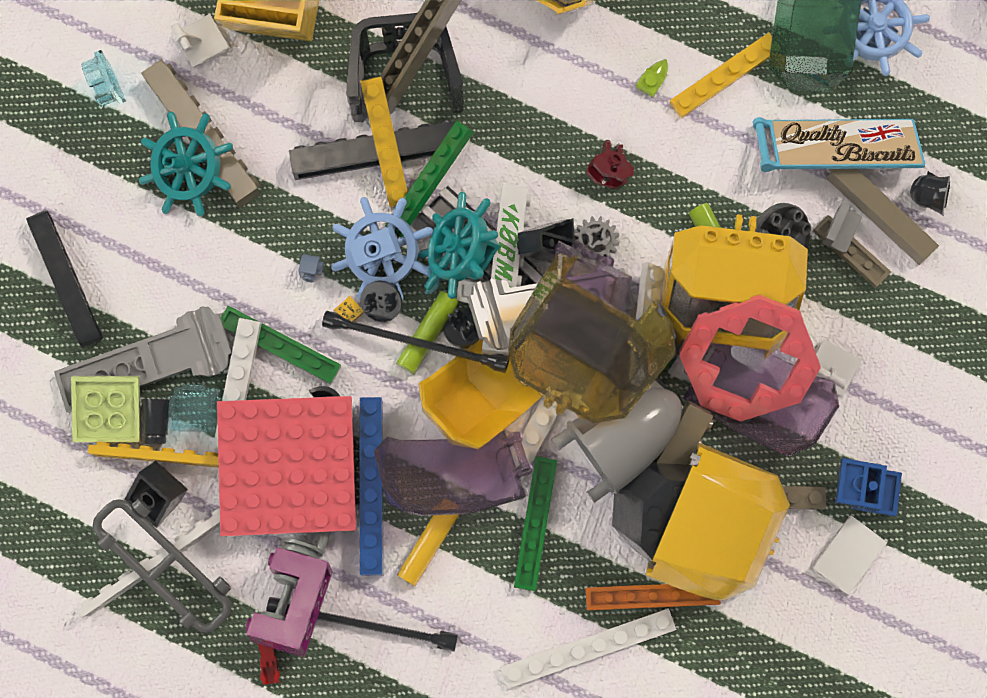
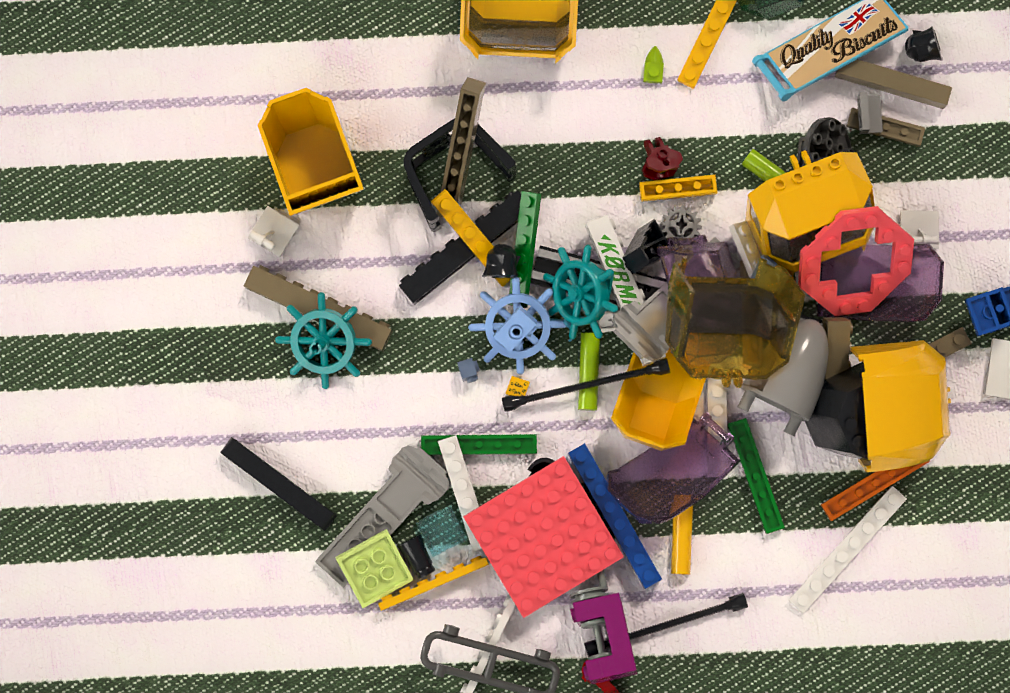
camera: 20 degrees left, 5 degrees up
(102, 78) = (215, 308): clear light blue panel -> none
(158, 491) = (451, 609): black slope -> none
(390, 300) = (547, 361): black plate -> none
(397, 177) = (501, 262): none -> black helmet
(457, 330) = (608, 350): black plate -> none
(613, 202) = (678, 188): none -> yellow brick

